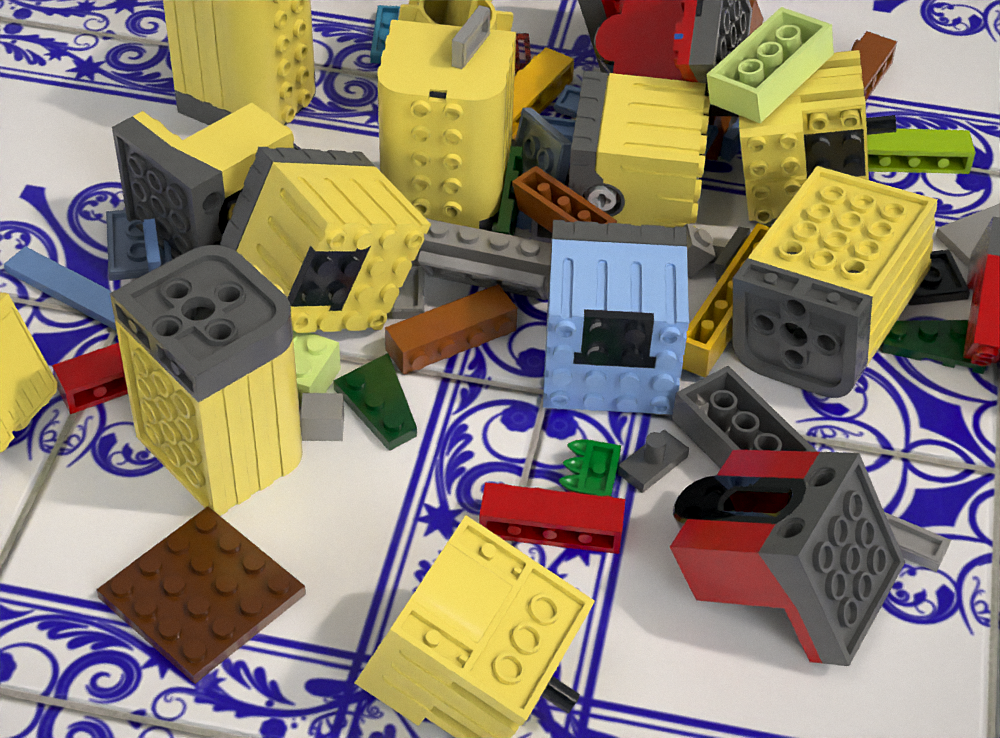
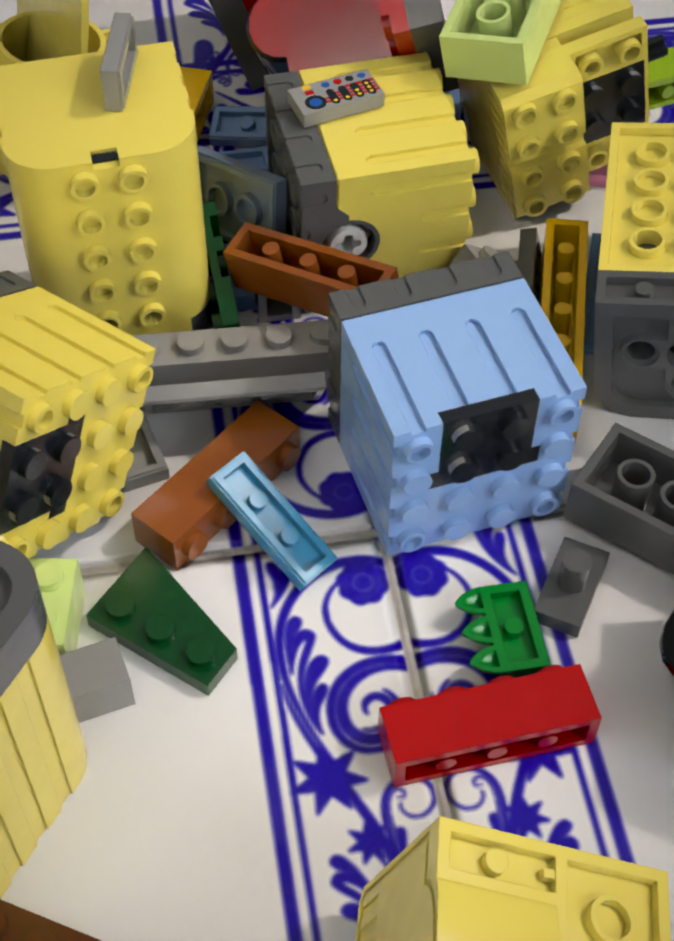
camera: 20 degrees left, 5 degrees up
(473, 360) = (271, 520): none -> dark azure tile
(622, 98) = (335, 98): none -> light grey tile

